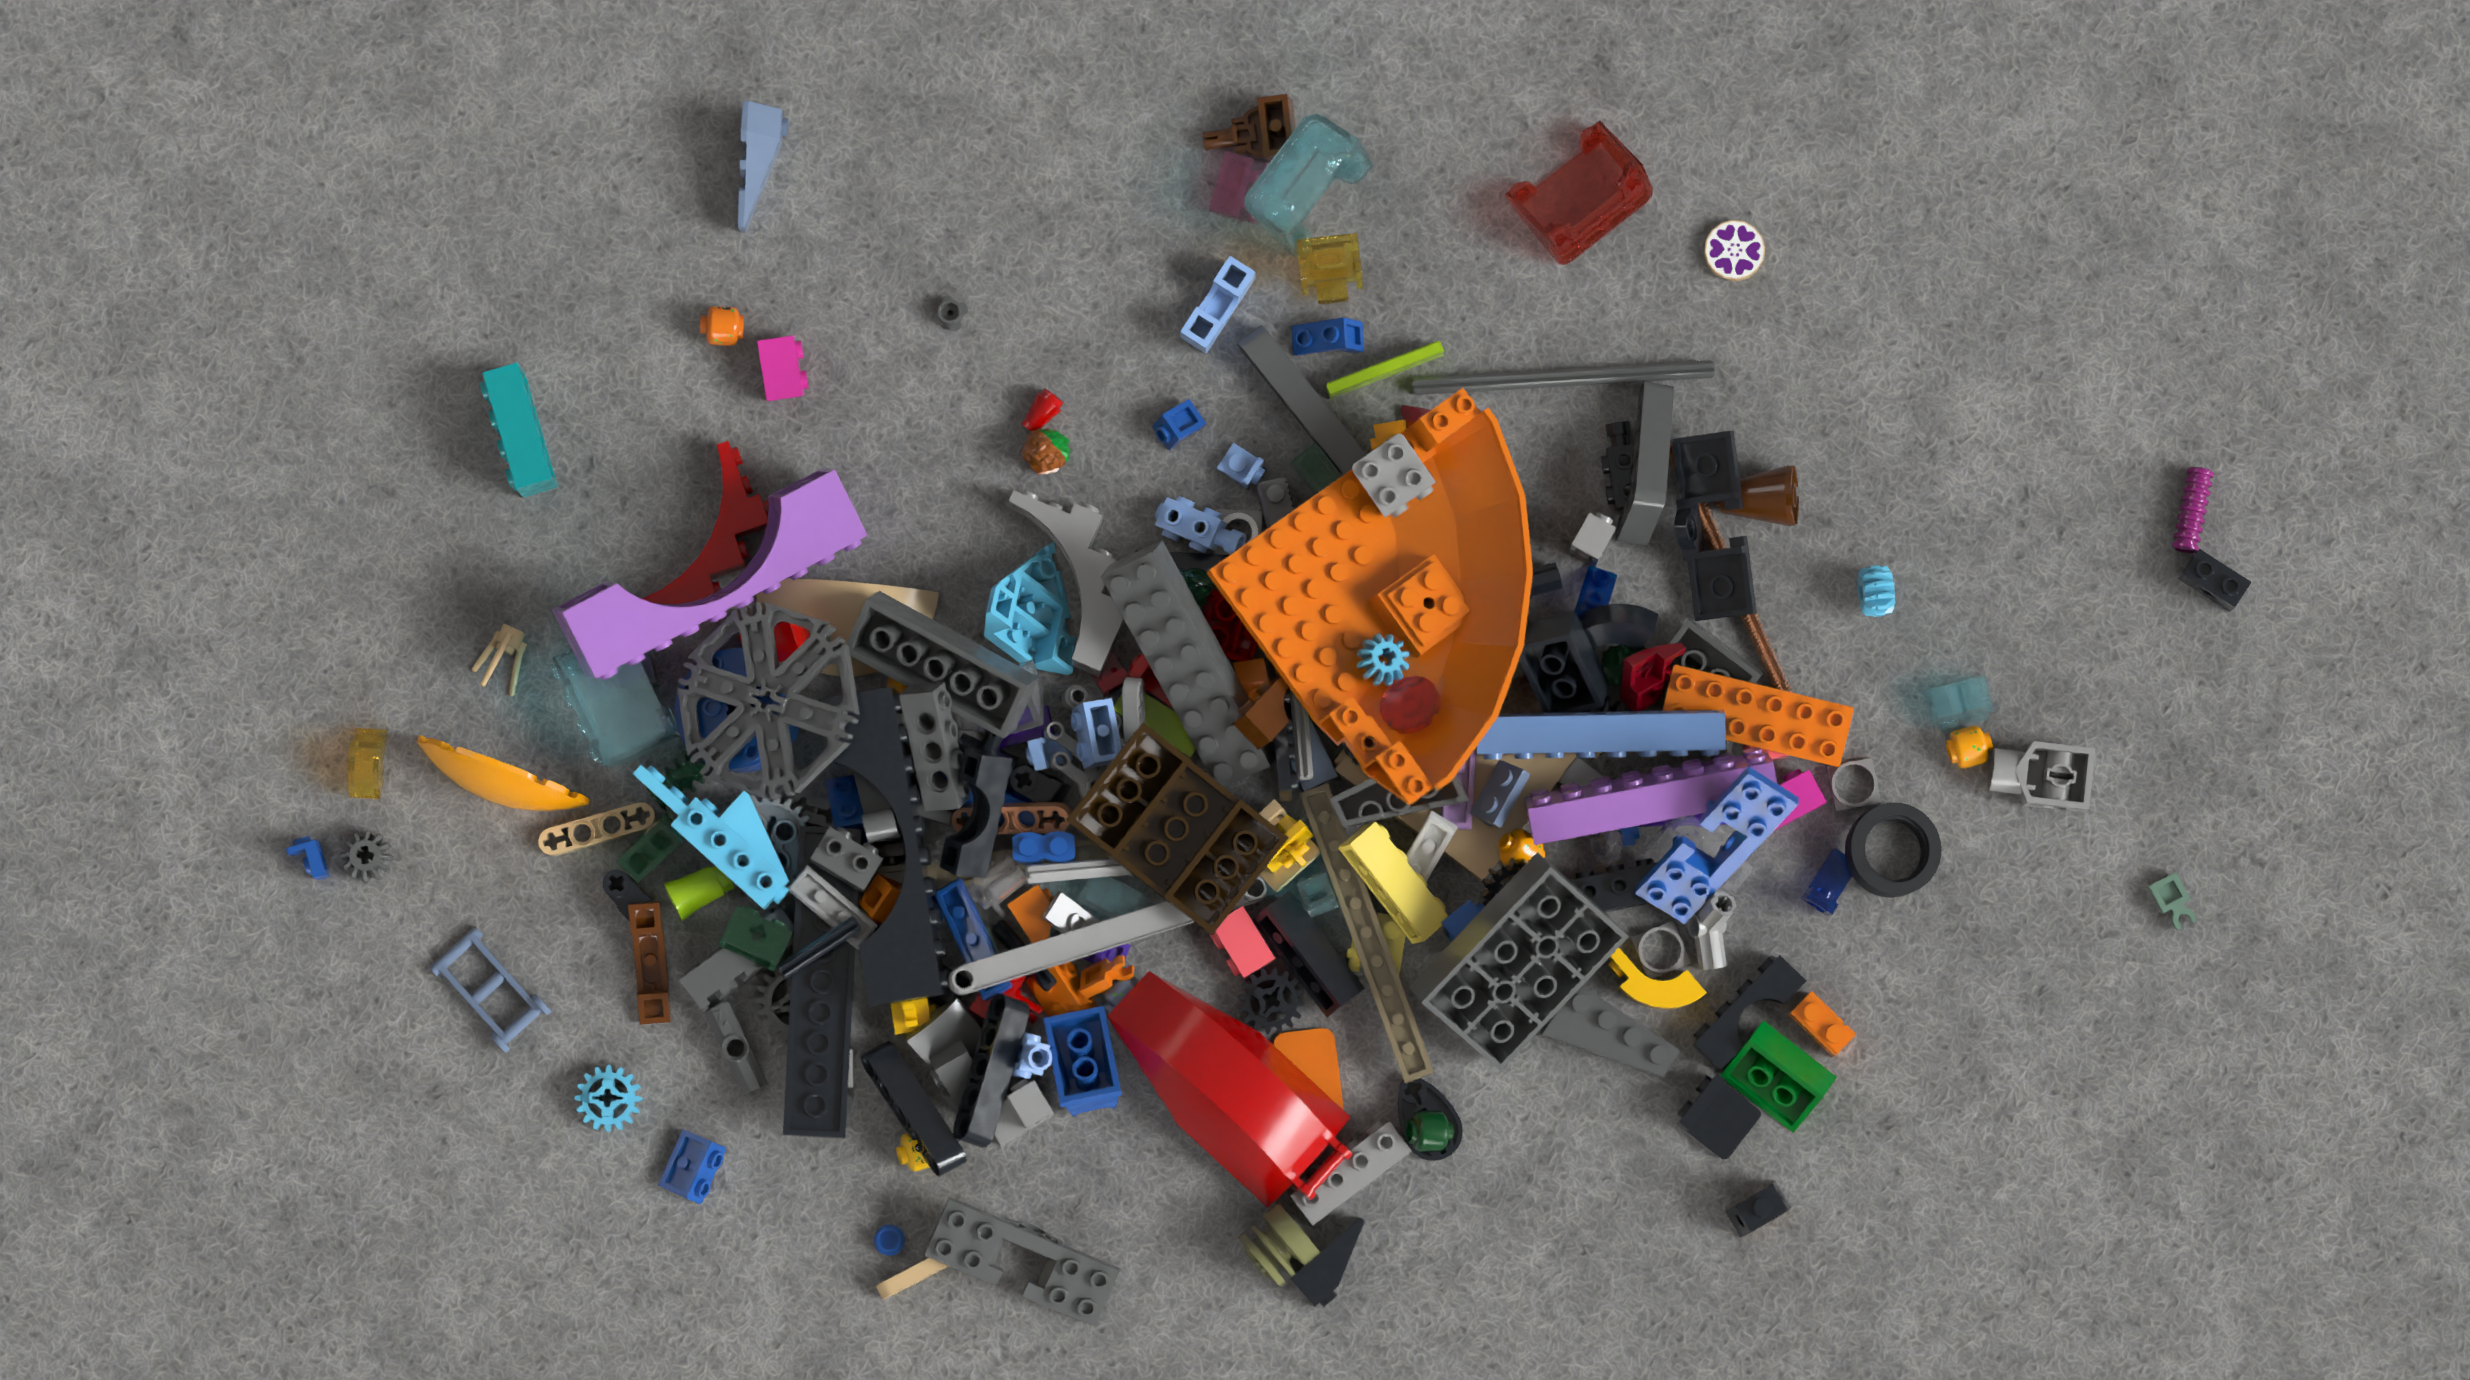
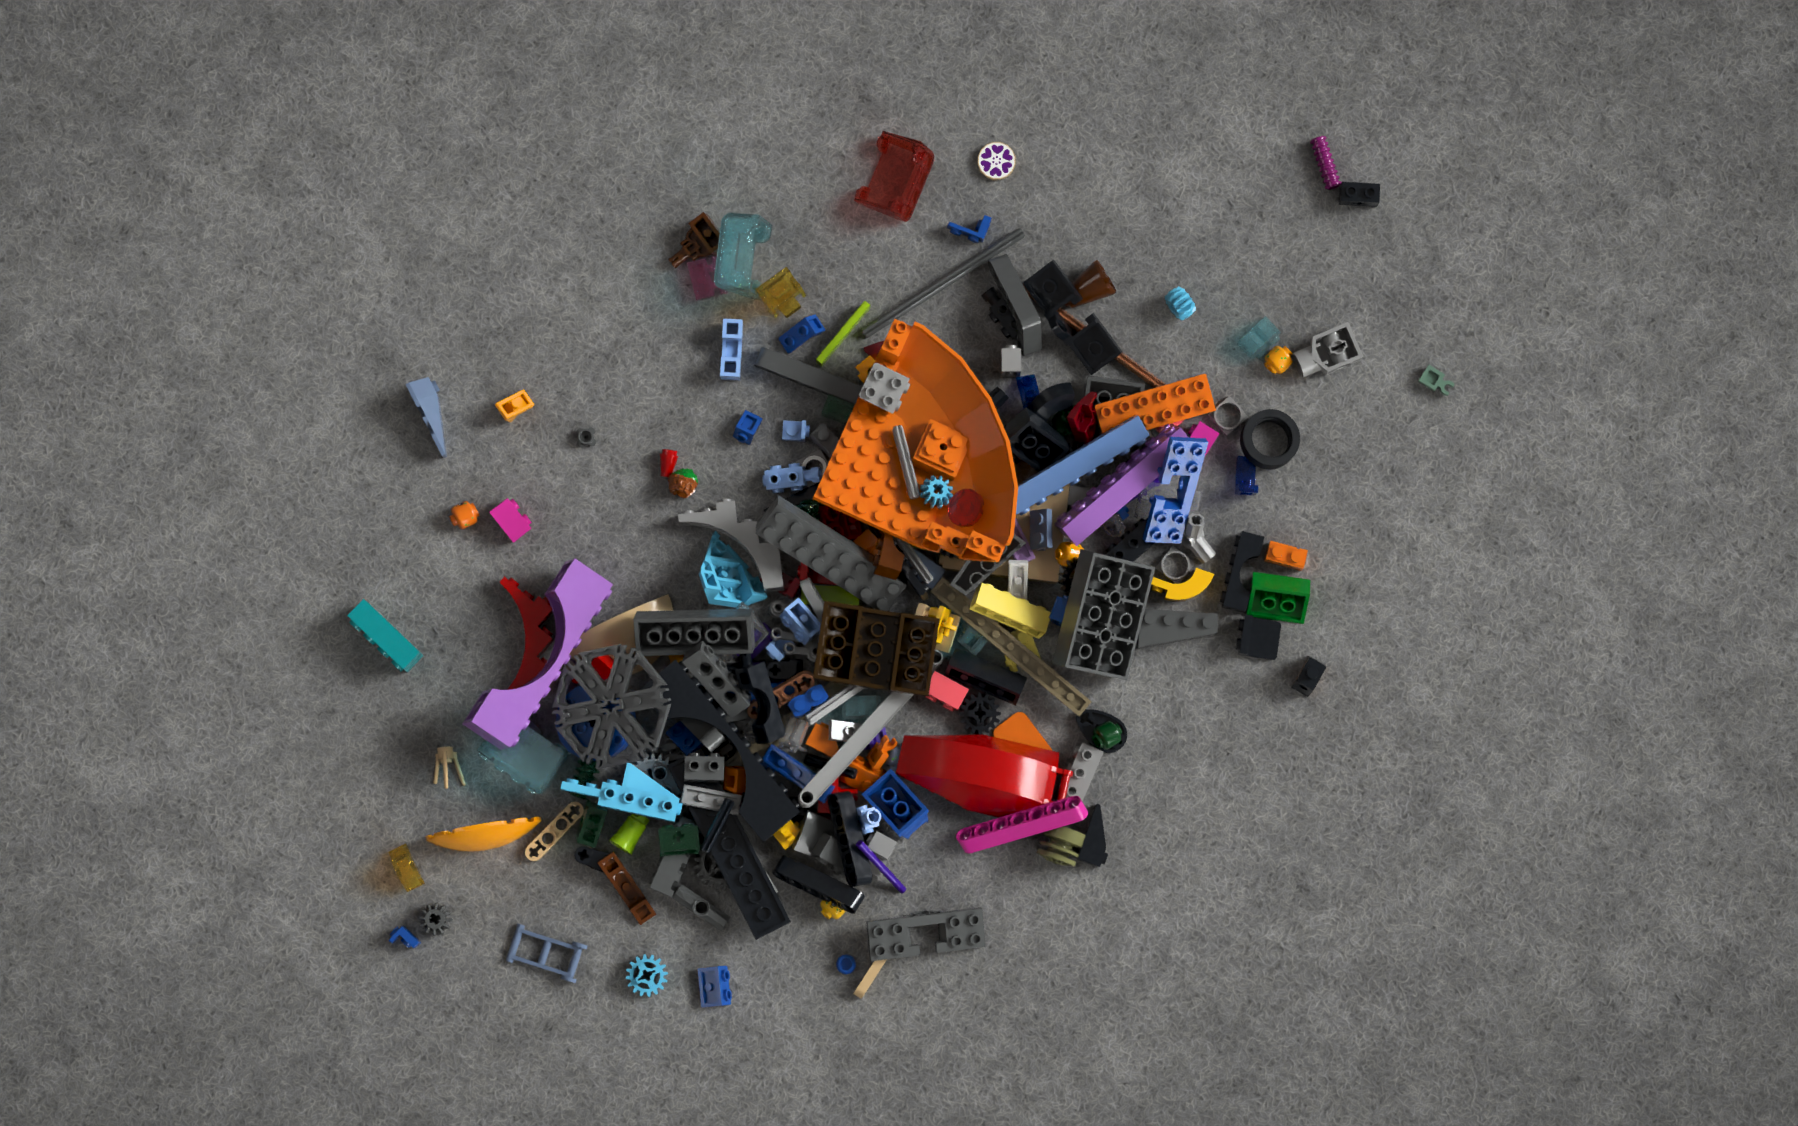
camera: 35 degrees left, 0 degrees up
(876, 214) = (514, 405): none -> light orange slope
(1012, 1133) = (880, 866): none -> dark purple bar
(1239, 1186) = (1022, 824): none -> dark pink beam
(1365, 595) = (906, 462): none -> light grey axle
(1661, 329) = (982, 227): none -> blue bracket

